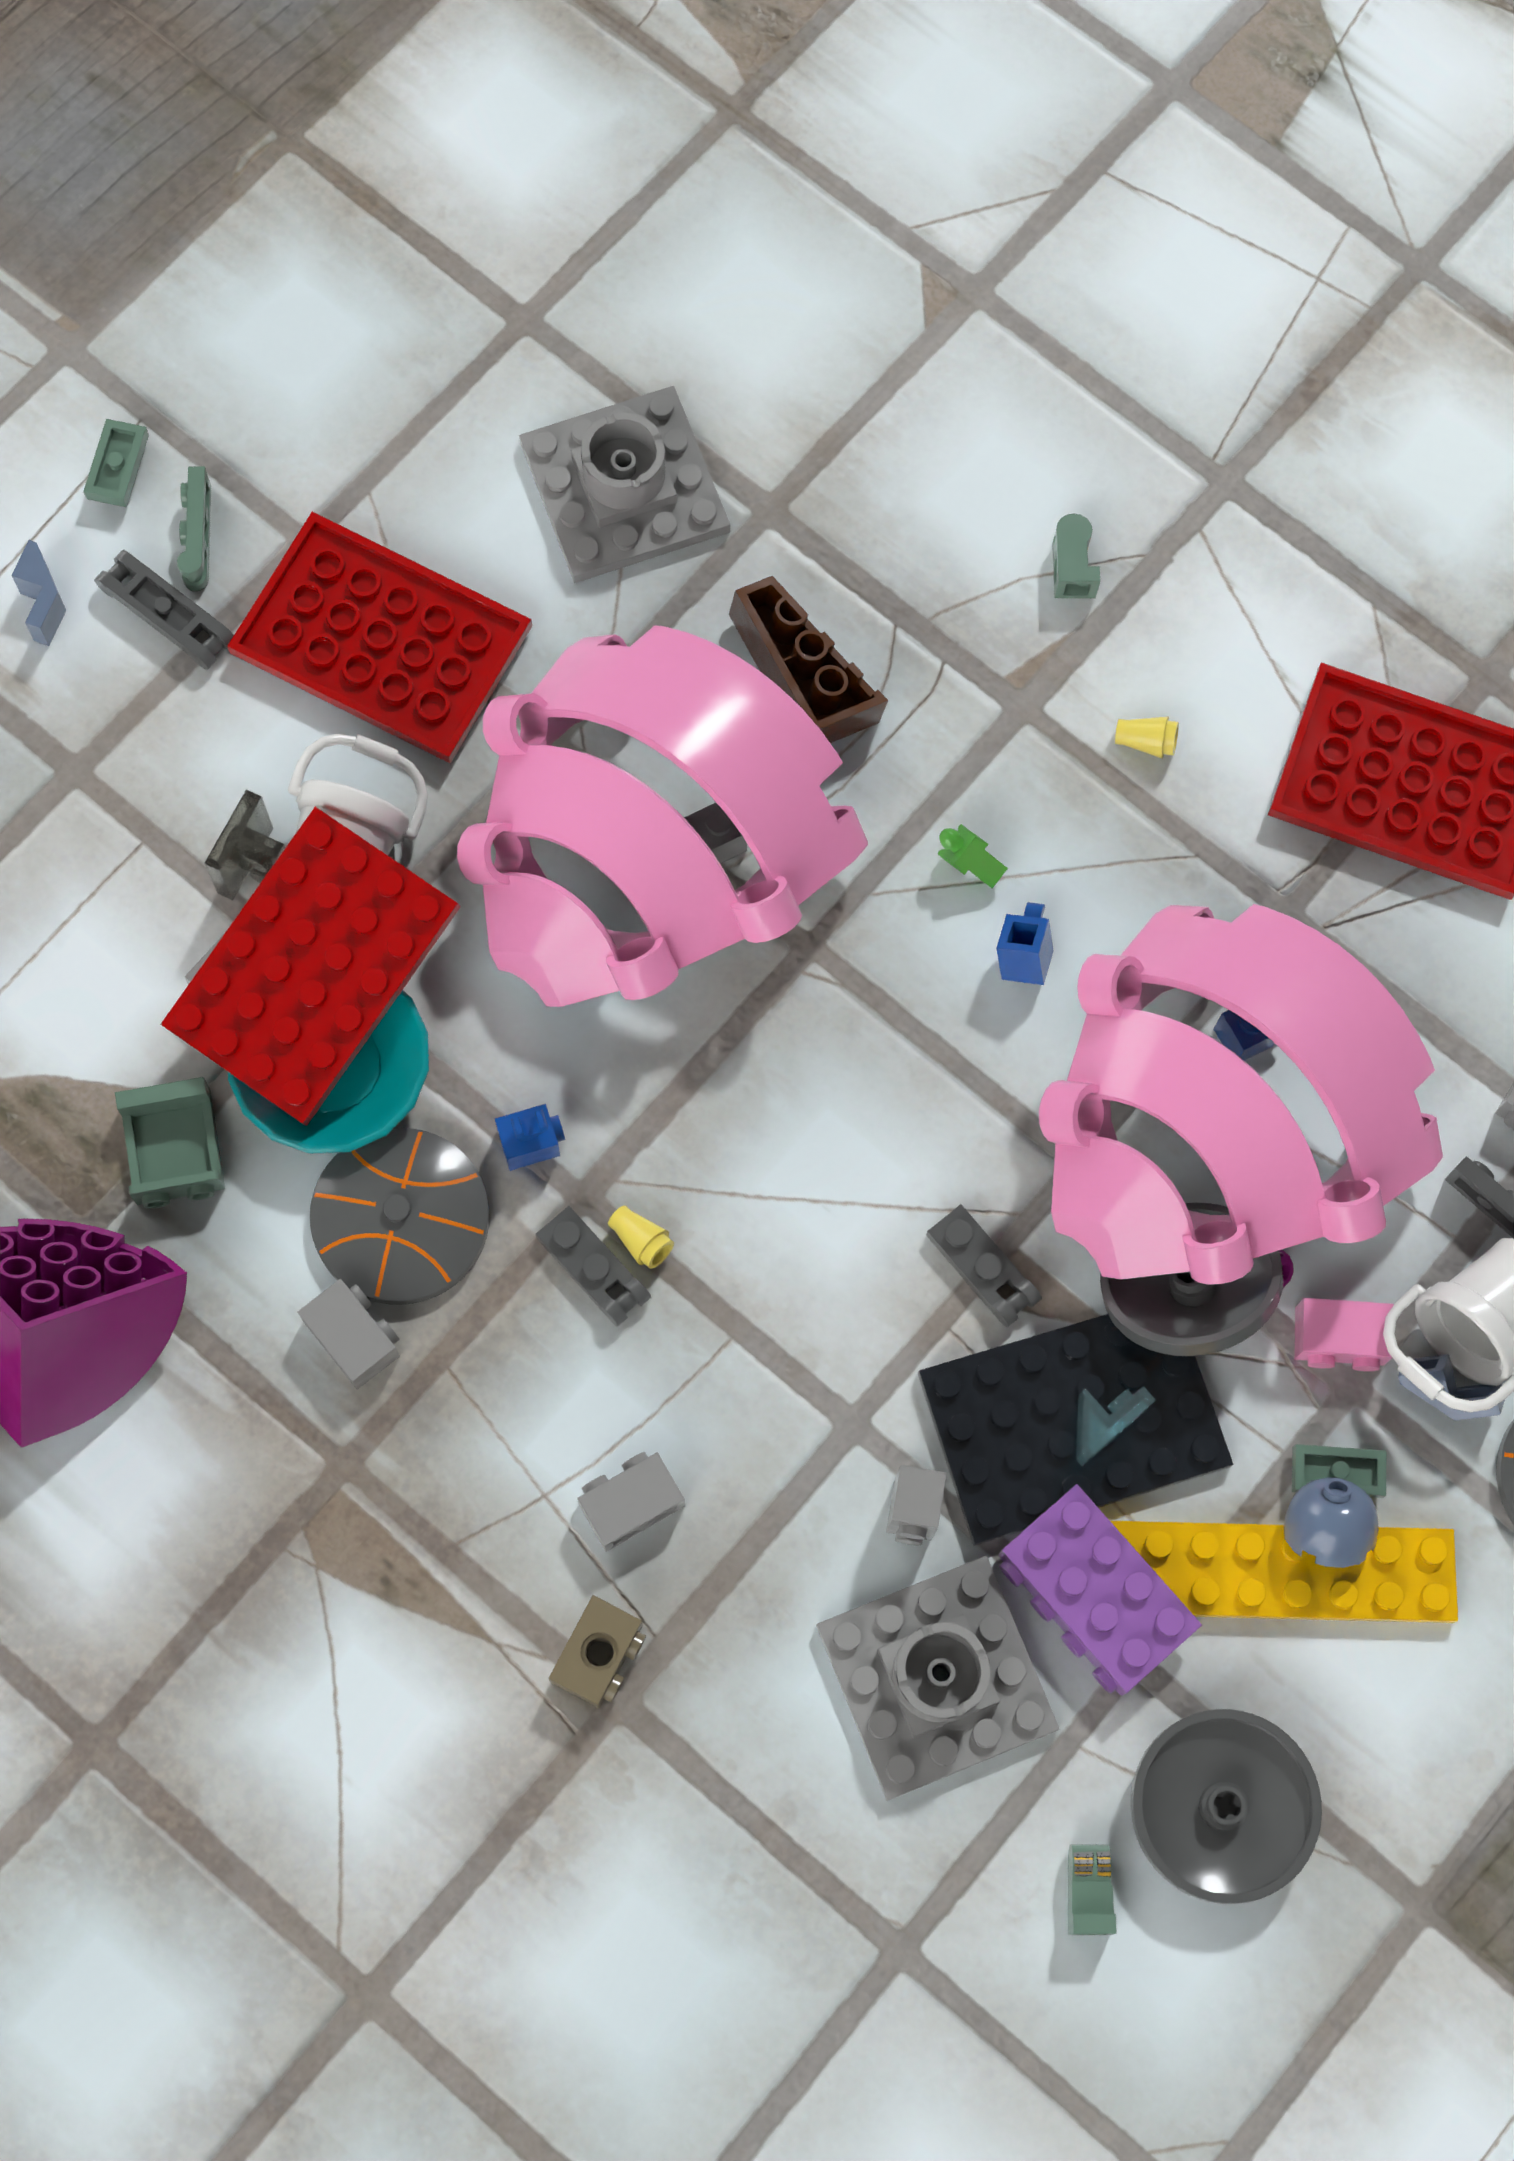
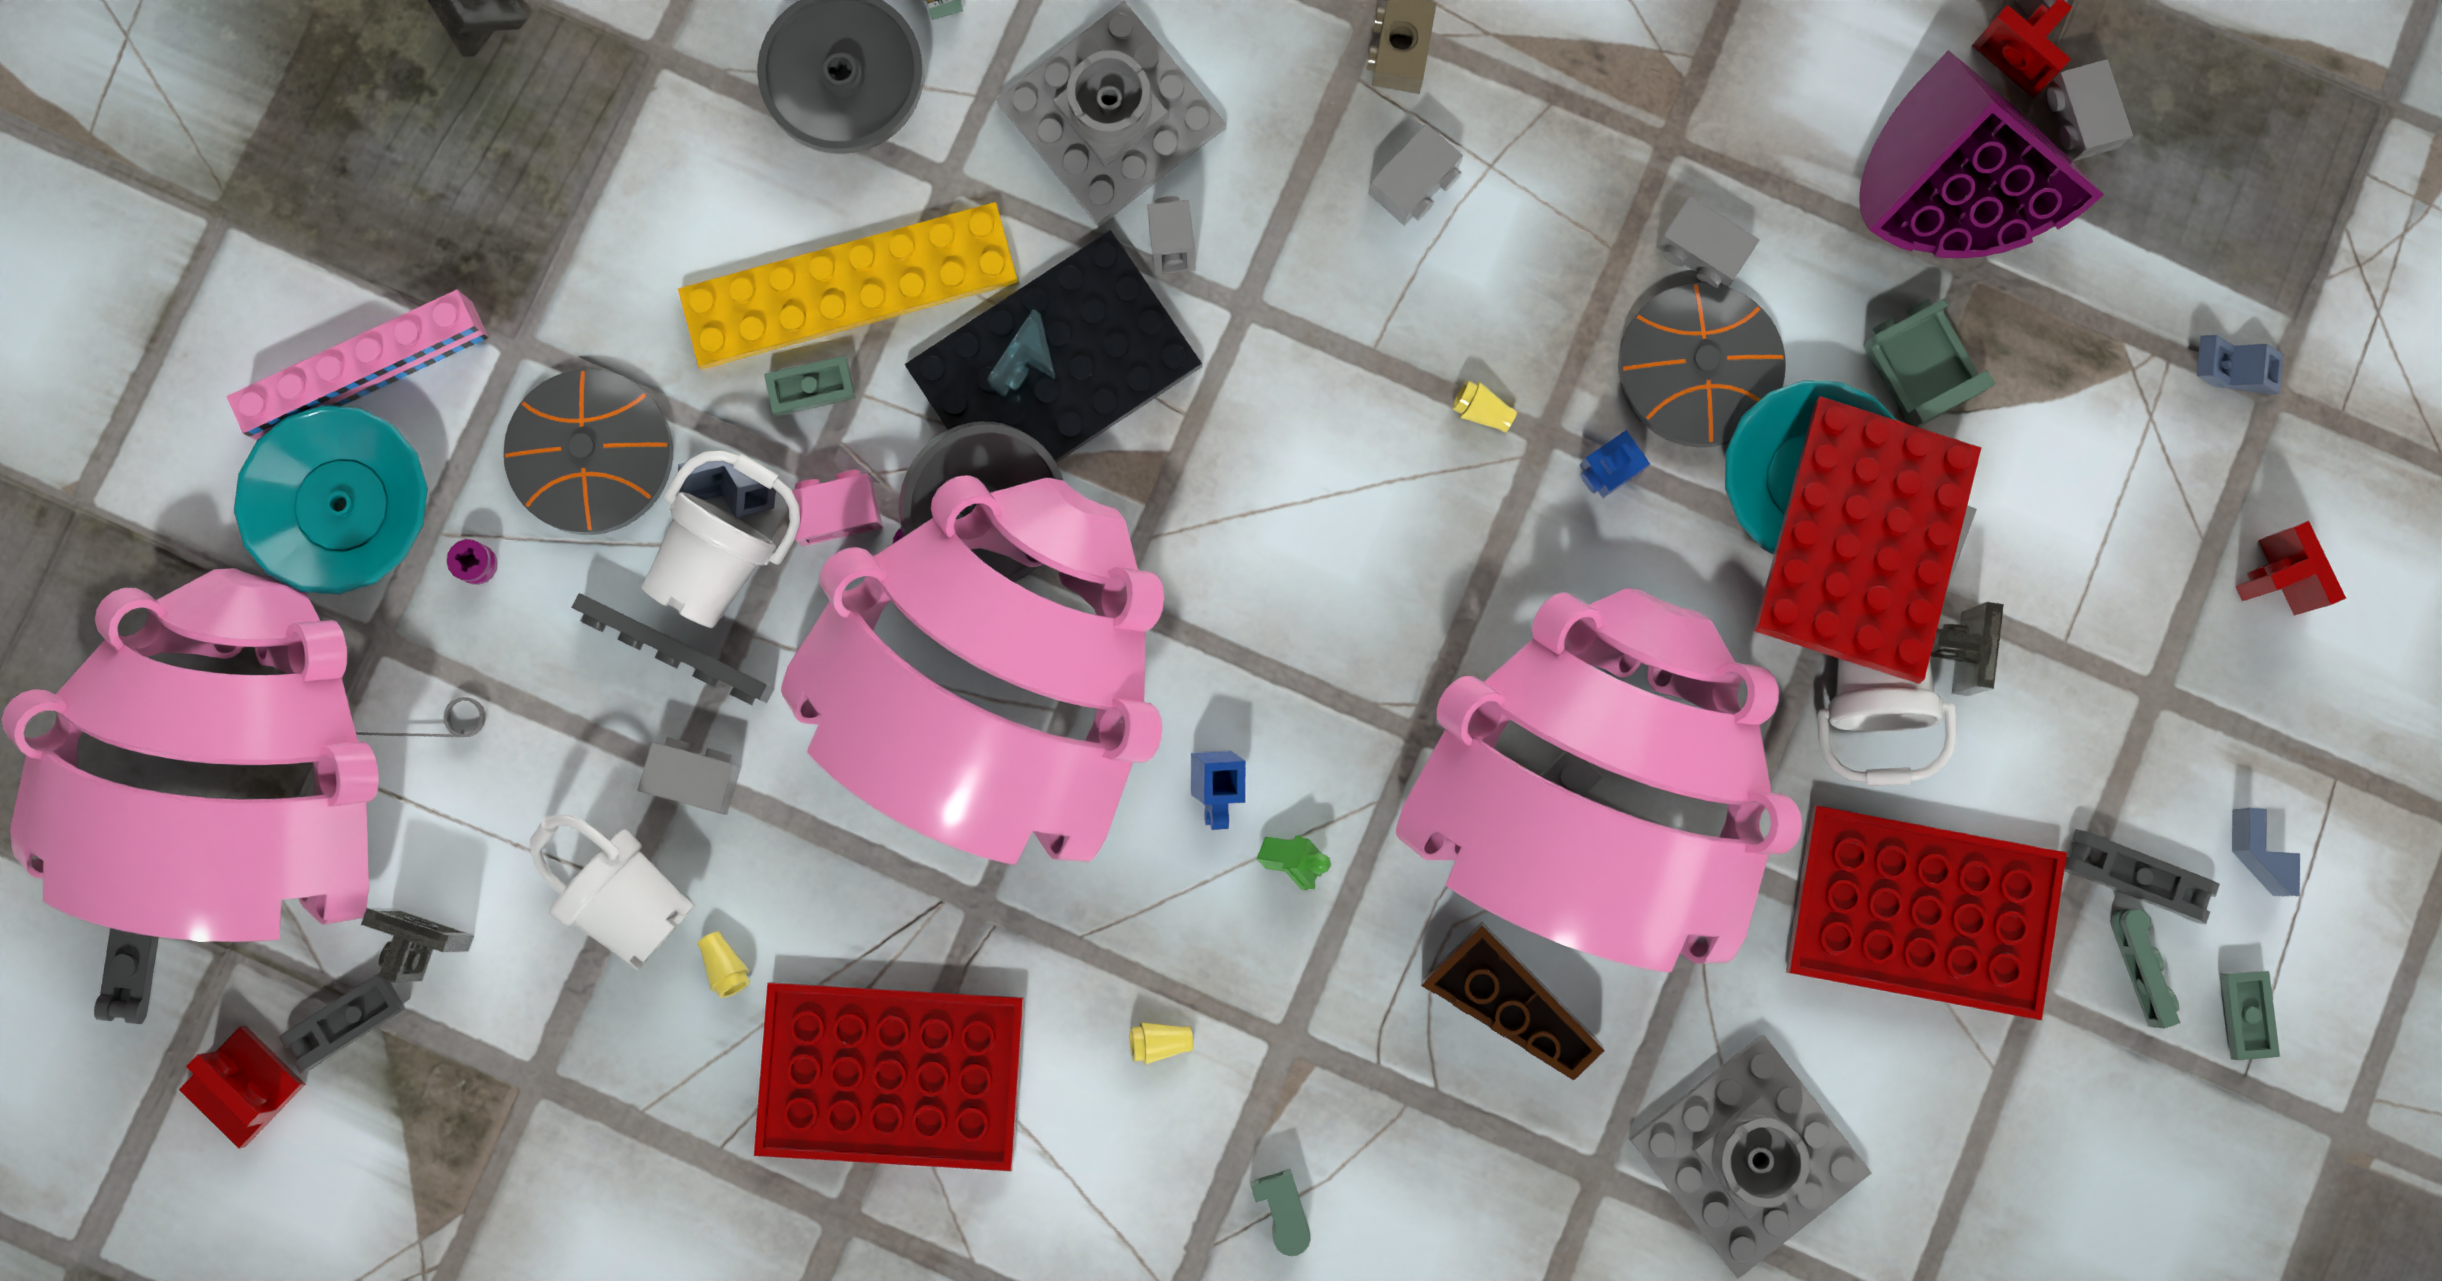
camera: 165 degrees right, 10 degrees up
(591, 1265) = (1517, 371): dark grey plate -> none
(982, 1265) = (1172, 477): dark grey plate -> none
(1097, 1591) = (993, 215): medium lavender bracket -> none
(1332, 1522) = (805, 328): sand blue cylinder -> none

